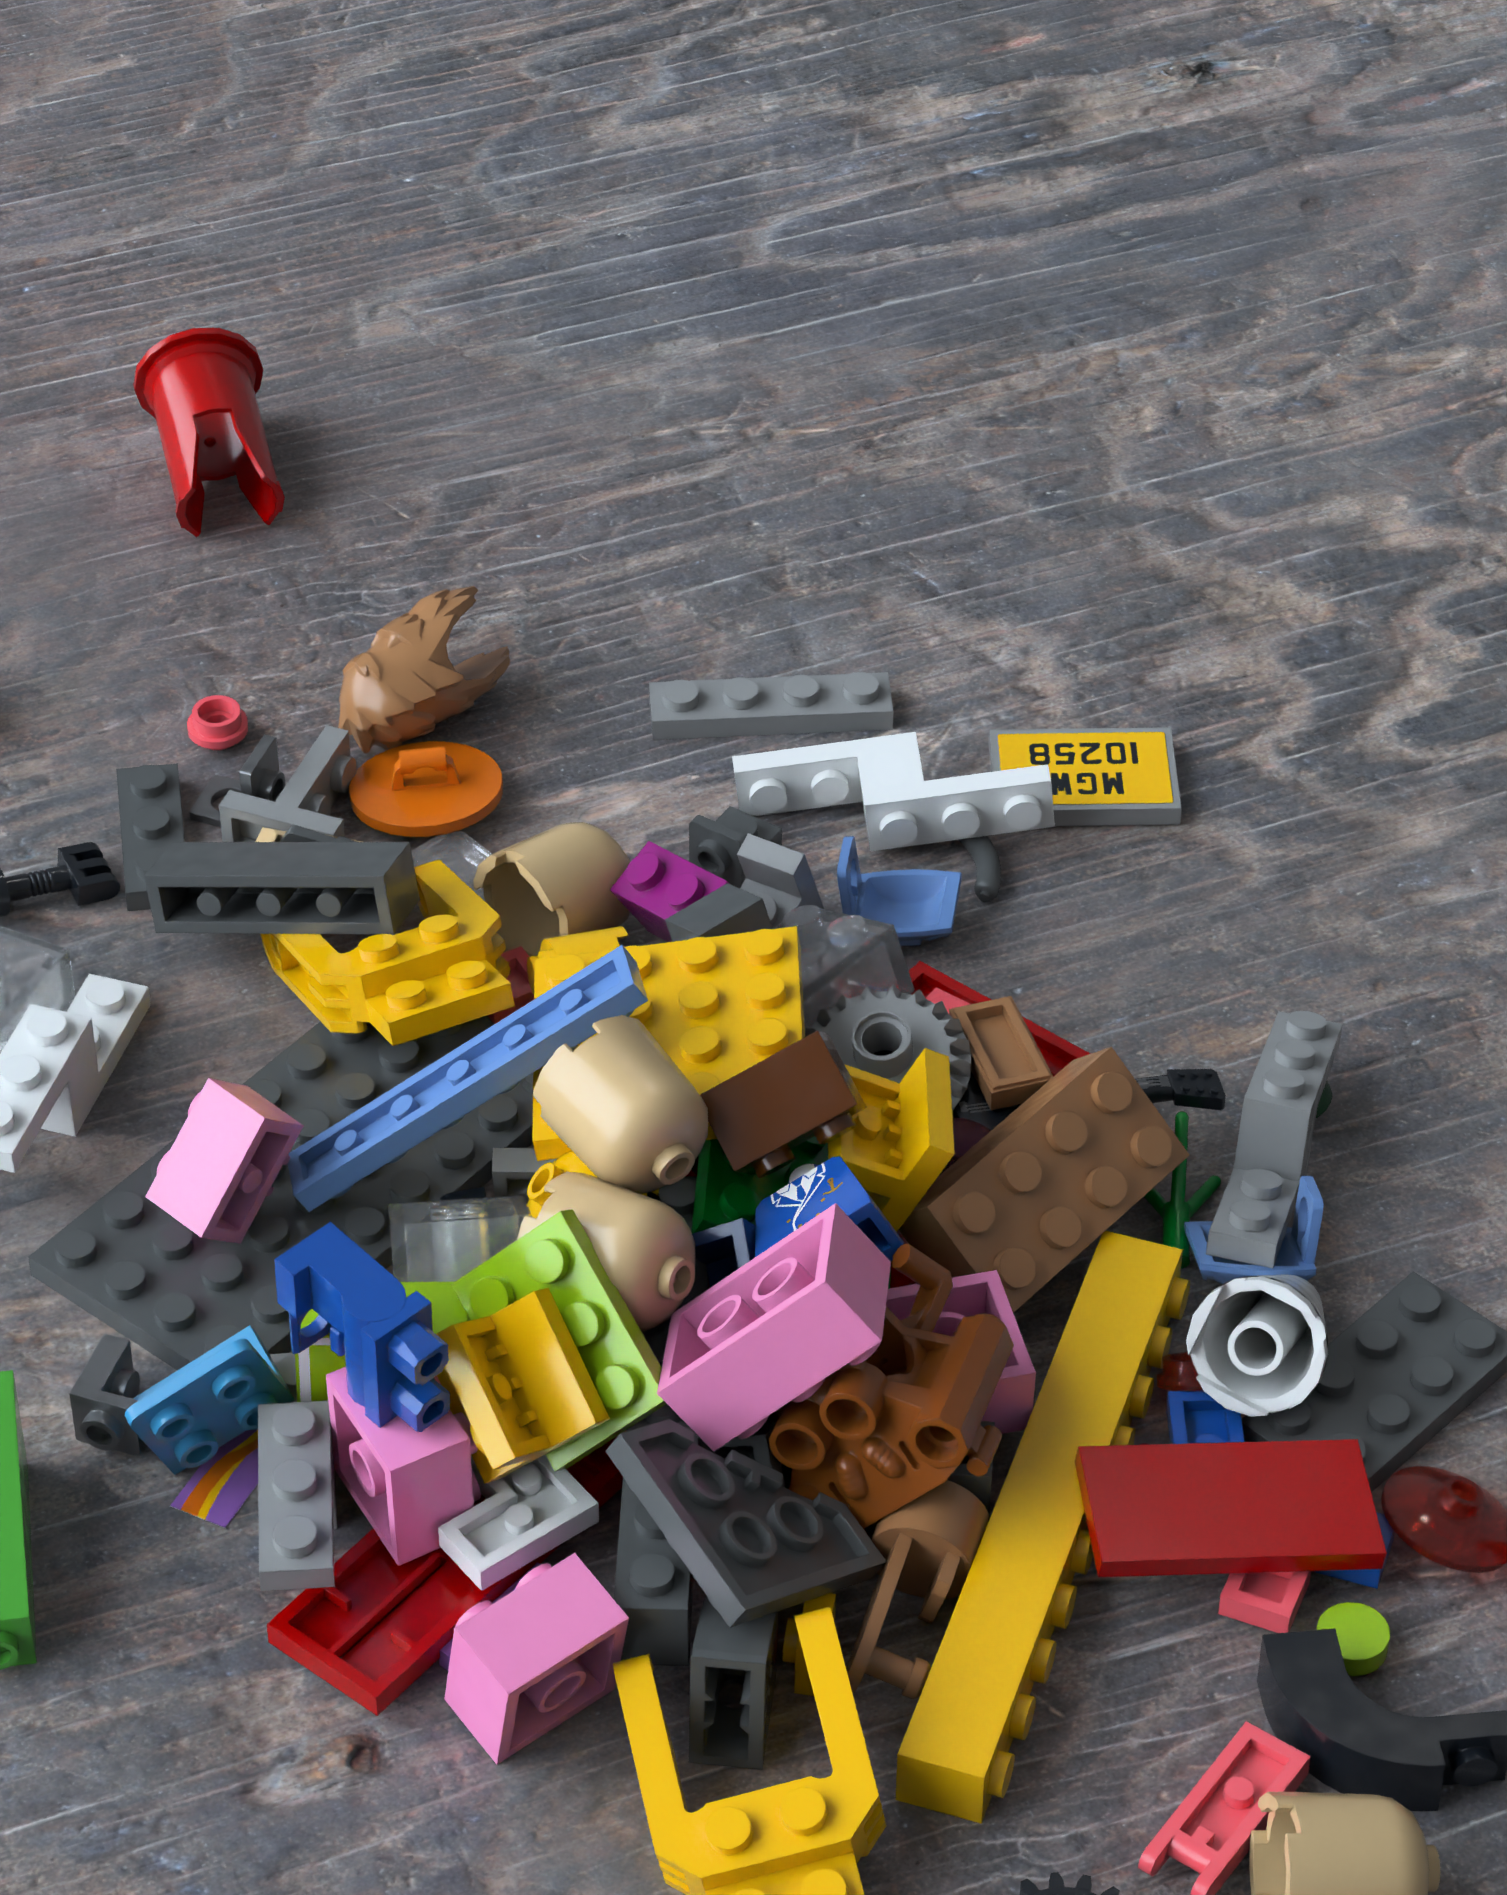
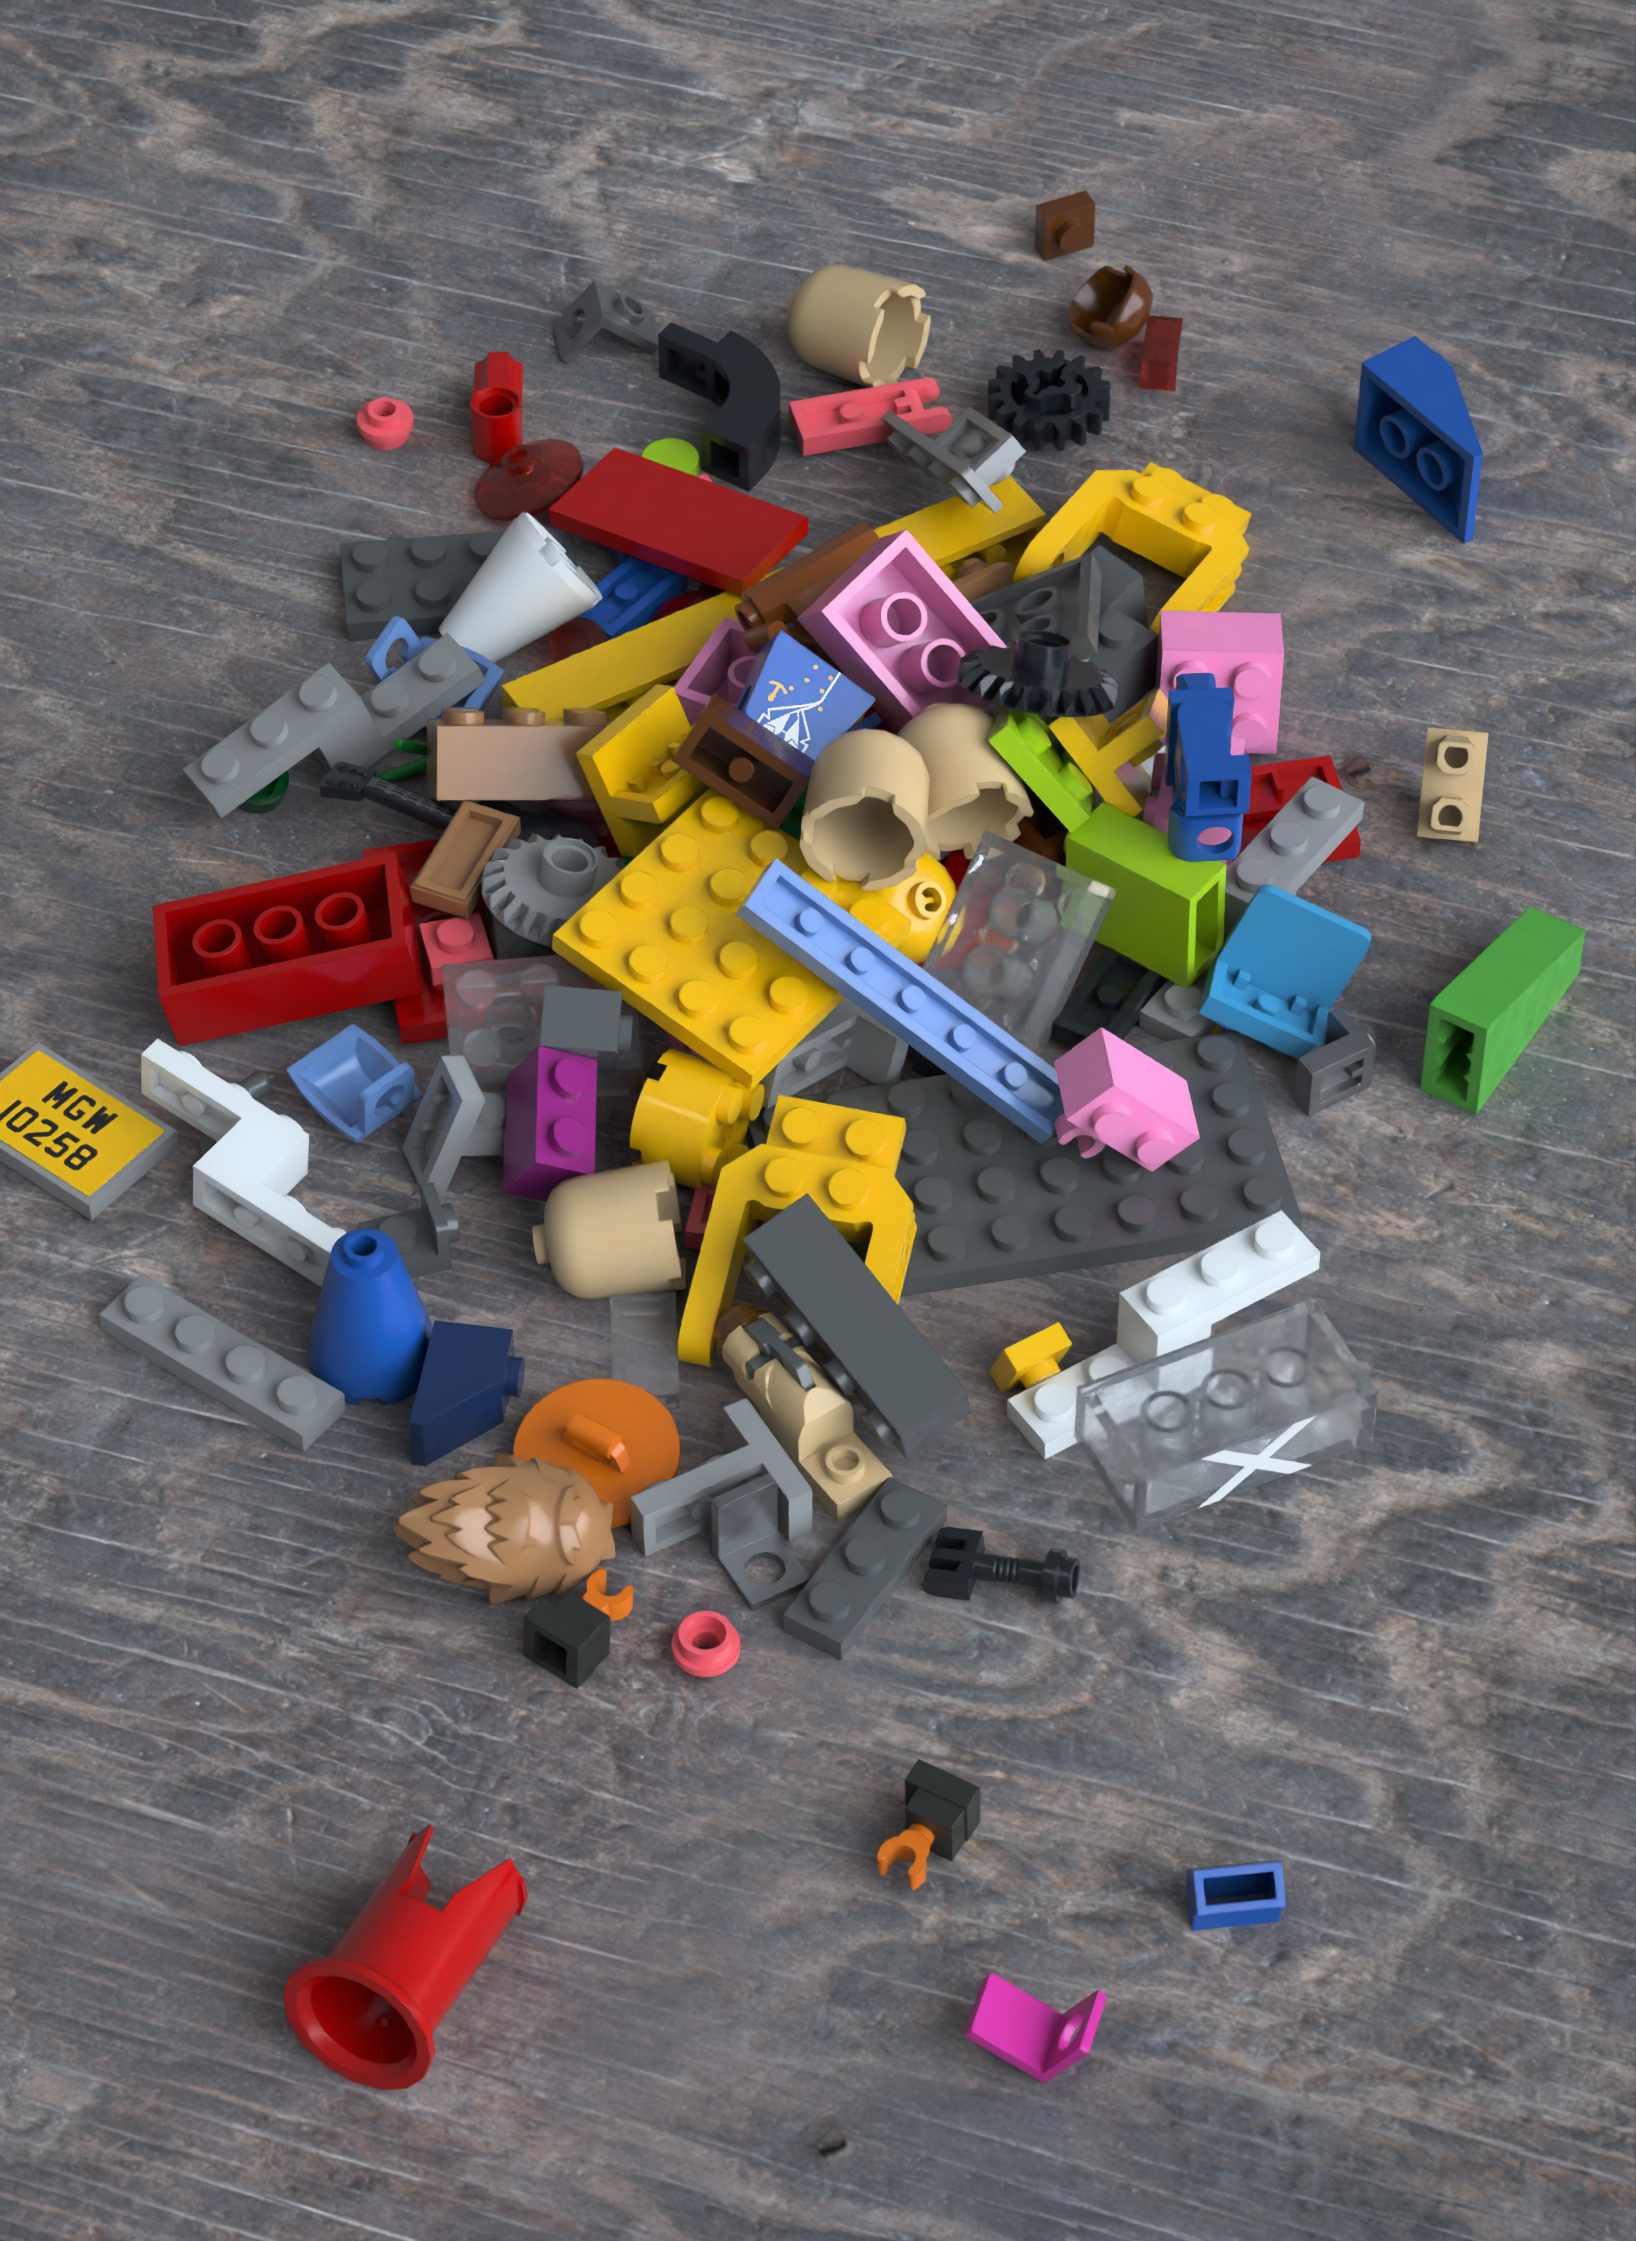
camera: 140 degrees left, 5 degrees up
(154, 1014) = (1031, 1359): none -> yellow plate
(216, 1726) = (1452, 784): none -> tan hips
(314, 672) = (576, 1631): none -> pearl dark grey piece
(572, 764) = (462, 1387): none -> dark blue slope
(589, 1363) = (1038, 677): none -> black gear
(675, 742) = (369, 1322): none -> blue cone
(1045, 1733) = (963, 458): none -> light grey bracket
(1060, 924) = (286, 949): none -> red brick

